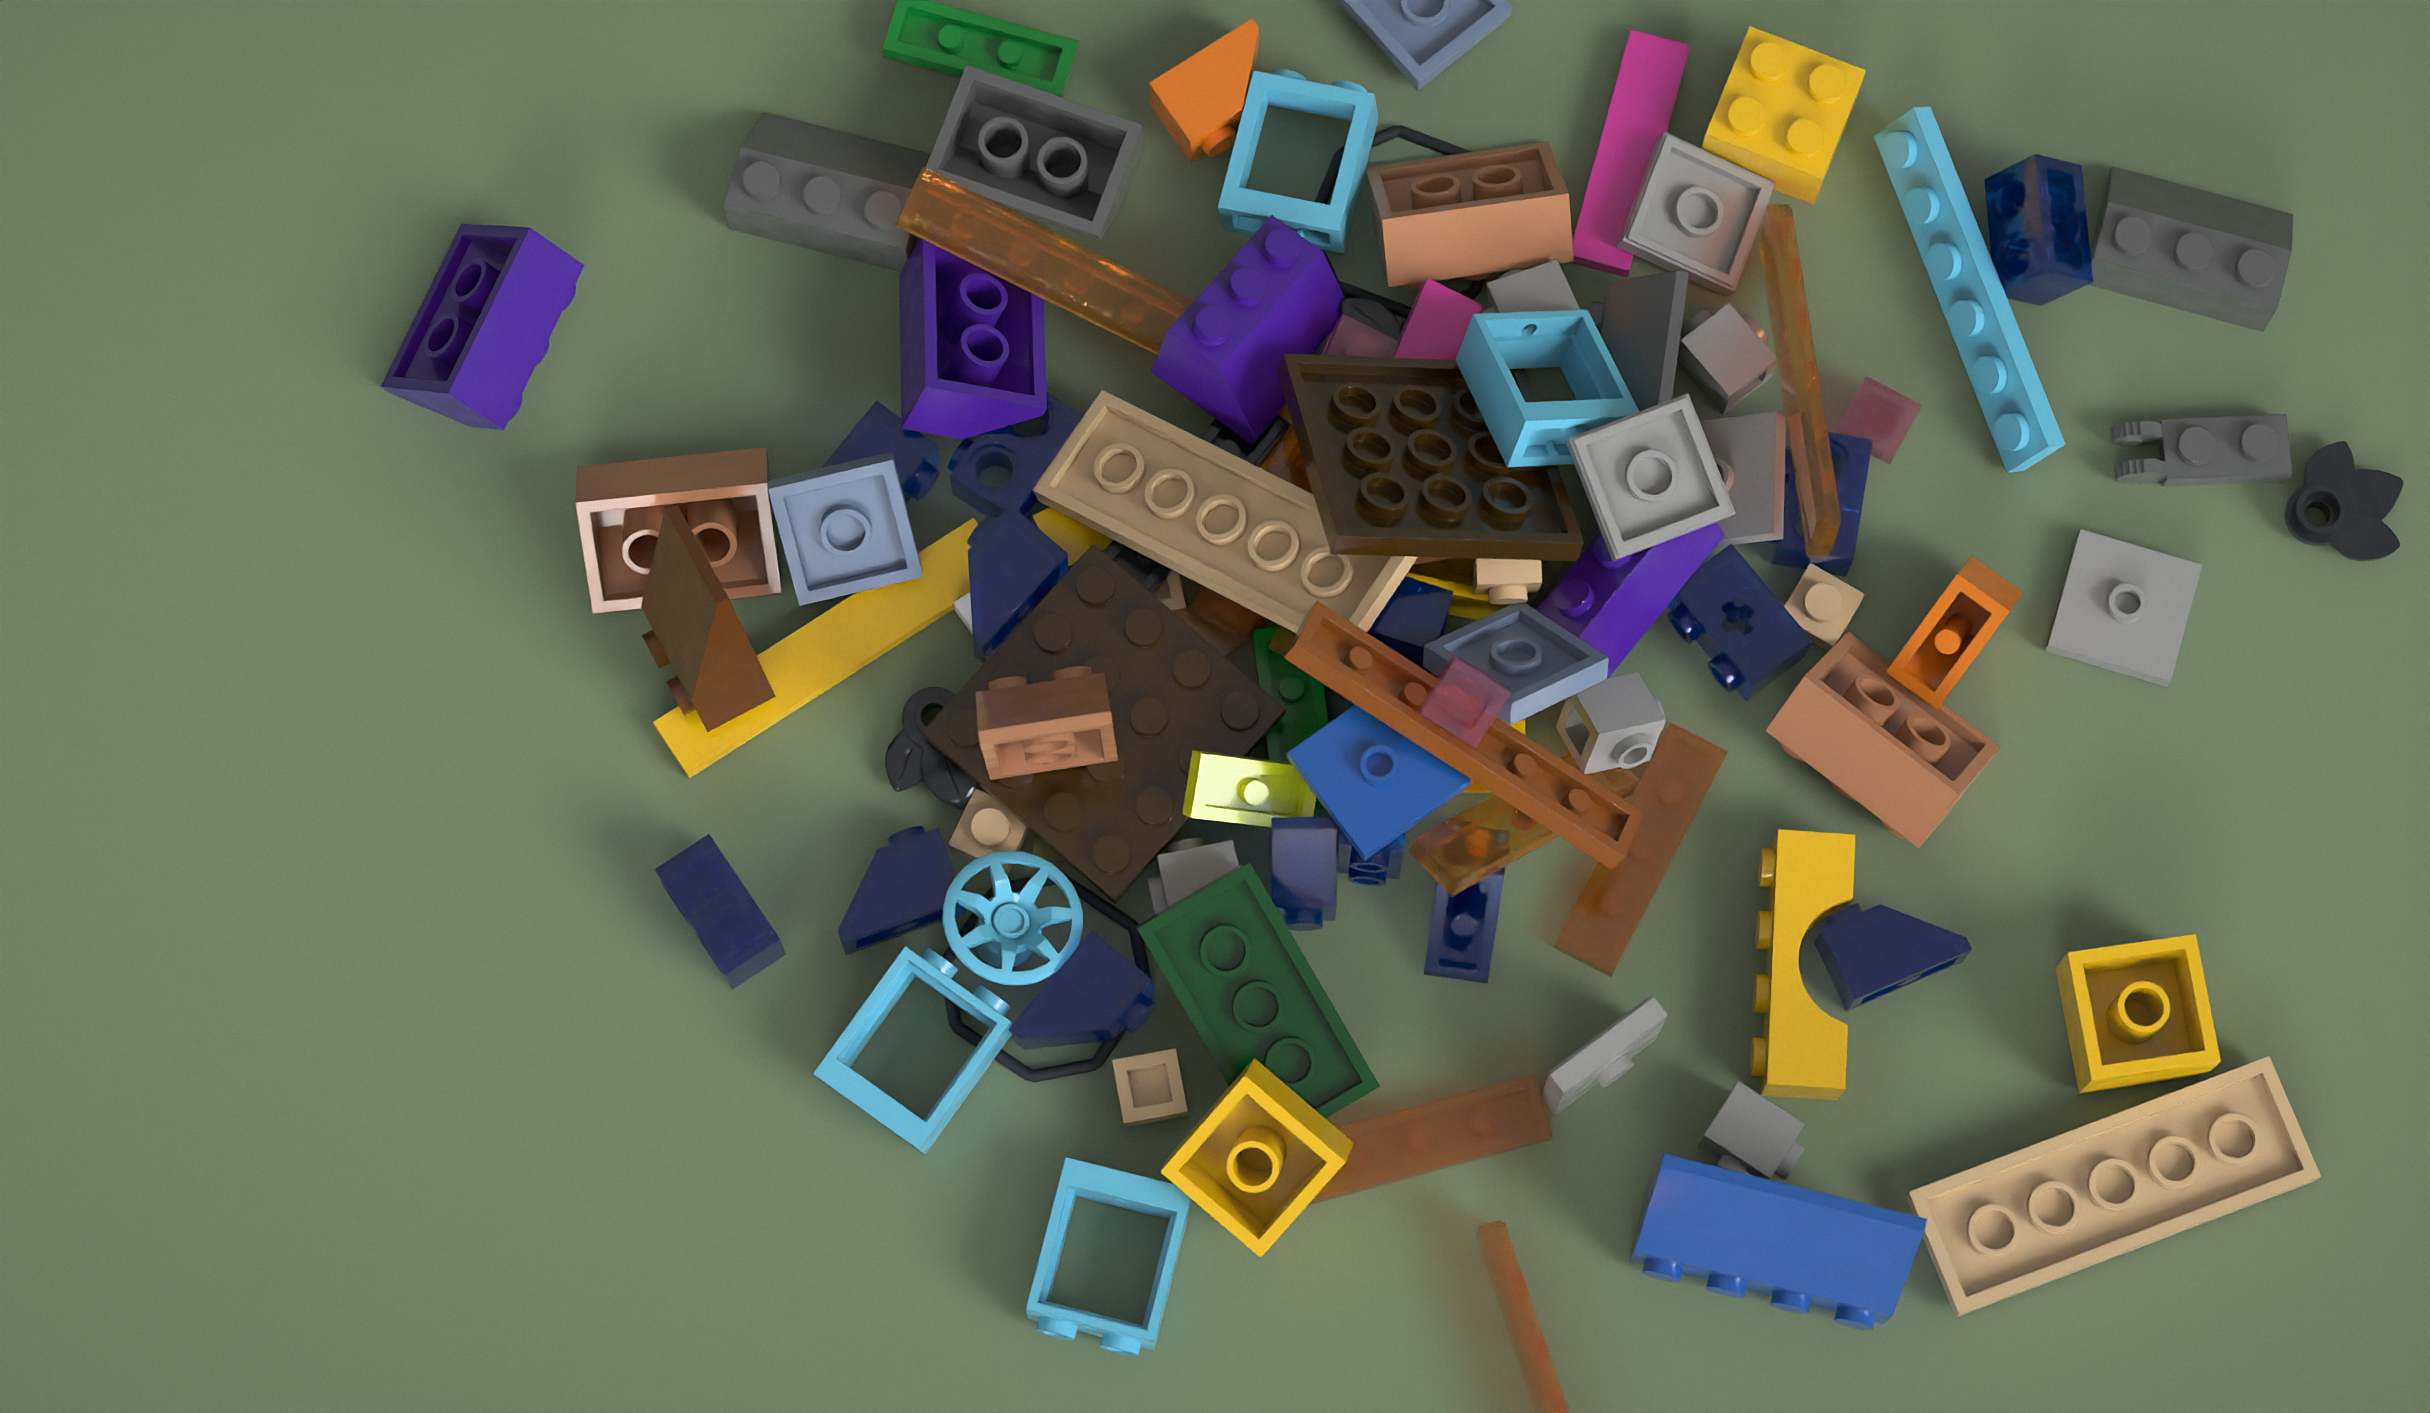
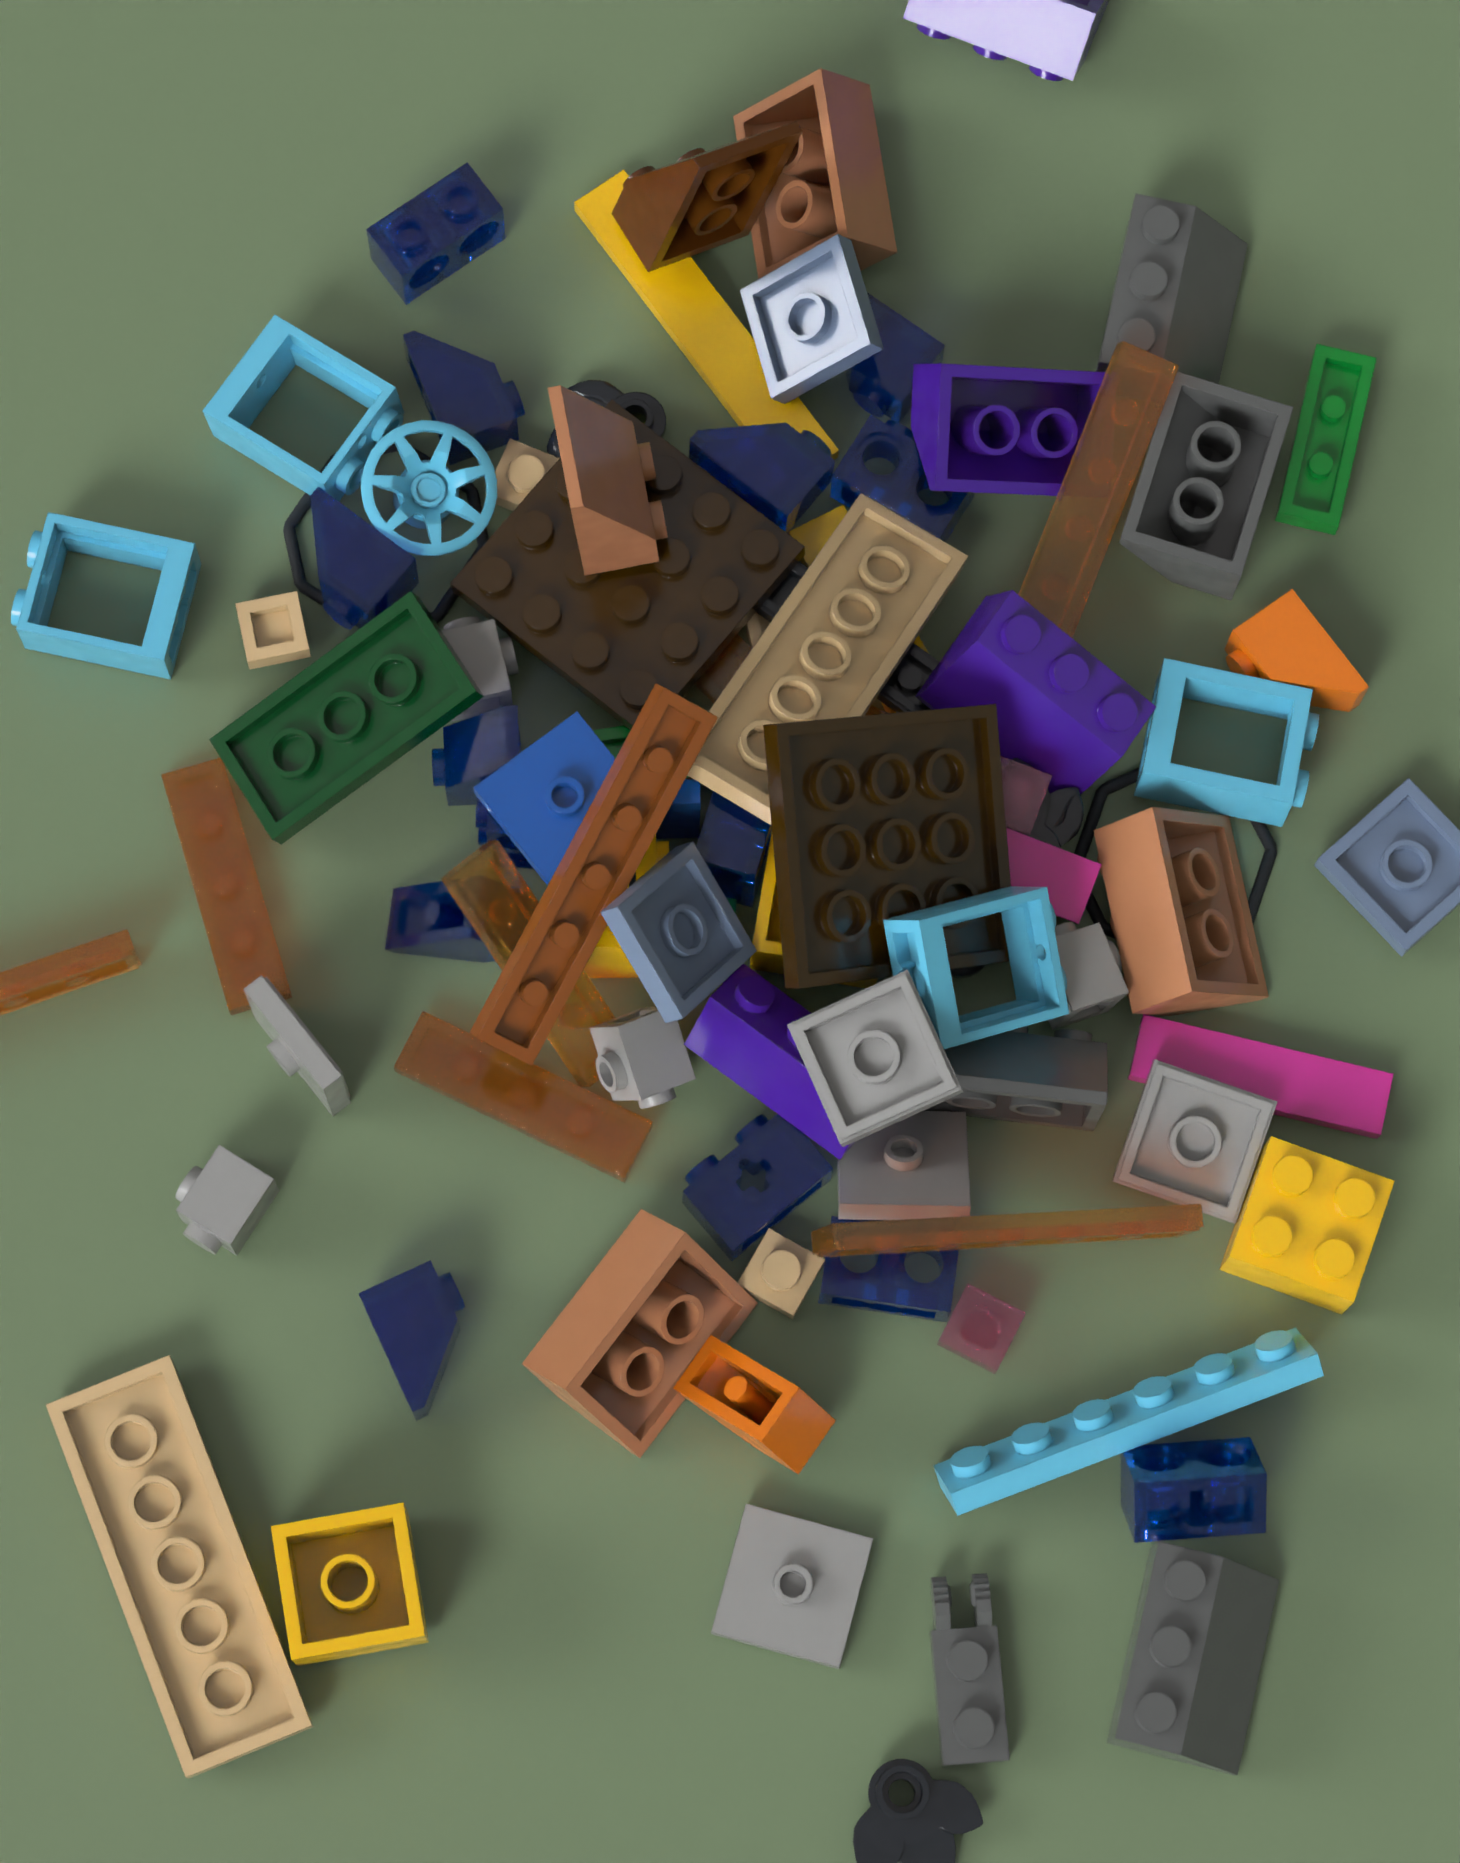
camera: 85 degrees right, 0 degrees up
(1245, 790) = (553, 683): neon yellow plate -> none
(1257, 1158) = (191, 714): yellow brick -> none
(1464, 701) = (616, 859): clear pink plate -> none
(1506, 579) = (764, 928): tan plate -> none
(1726, 355) = (1042, 1170): light grey brick -> none
(1775, 1242) = (111, 1211): blue slope -> none
(1801, 1044) = (320, 1247): yellow arch -> none

